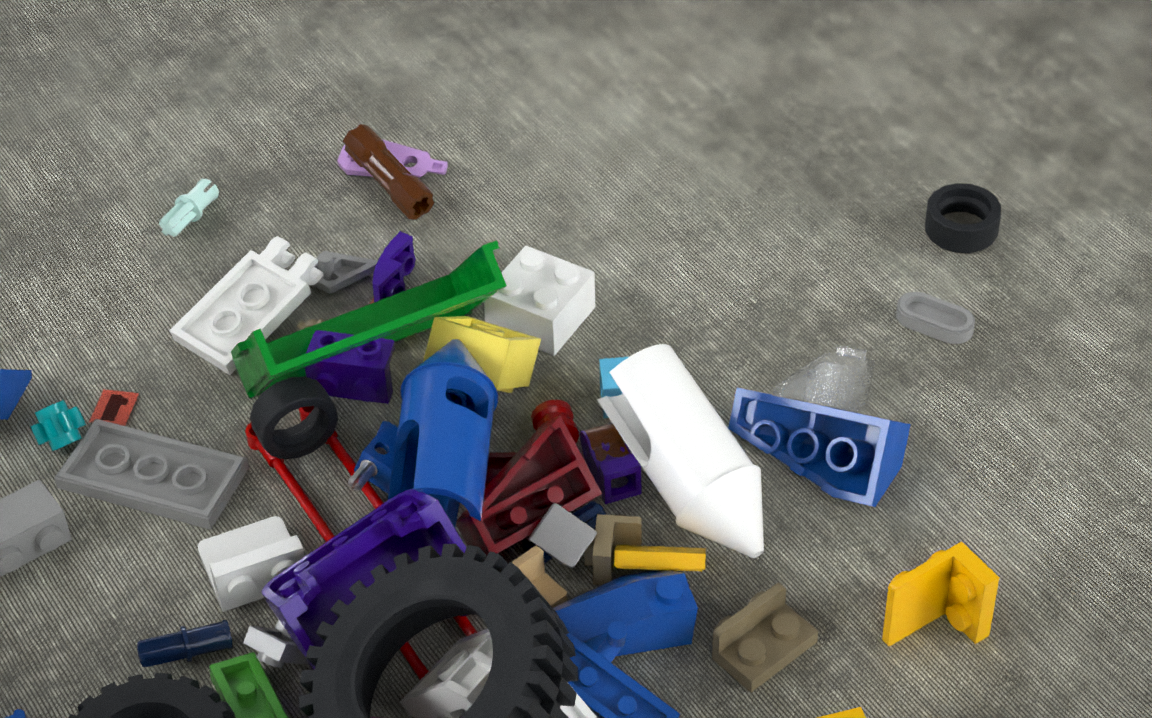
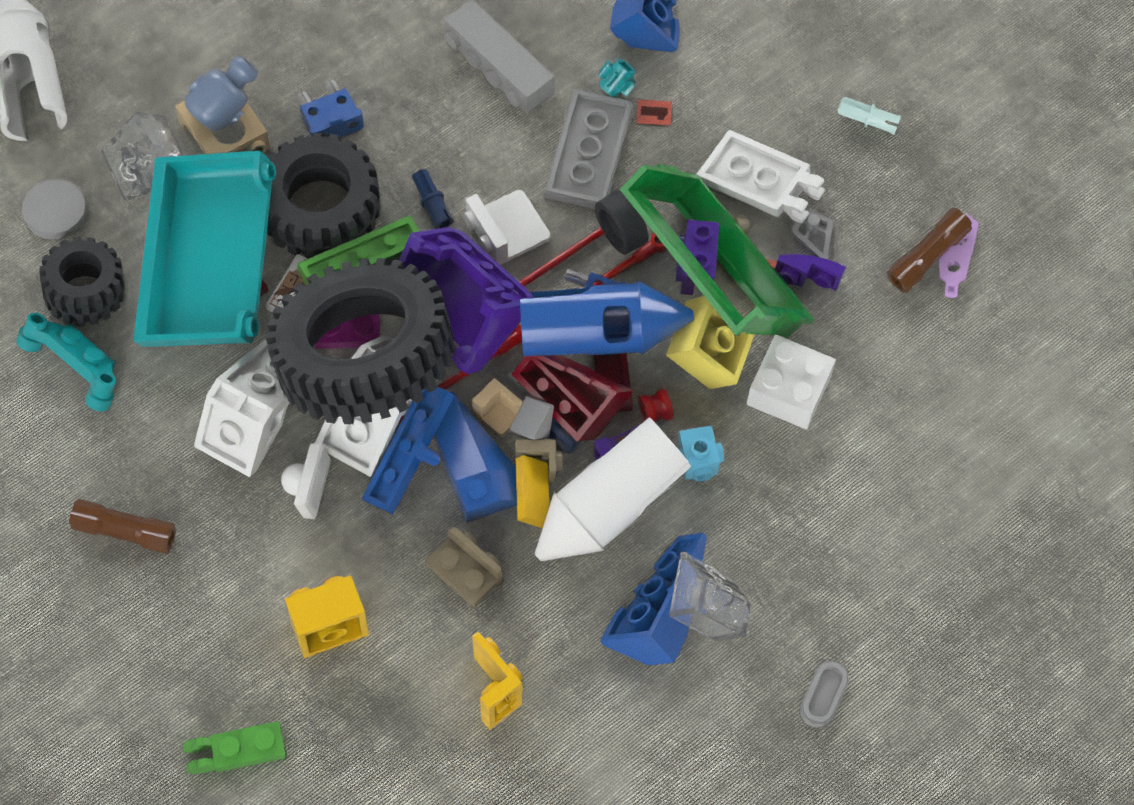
camera: 80 degrees right, 20 degrees up
(962, 237) = (957, 692): black tyre -> none

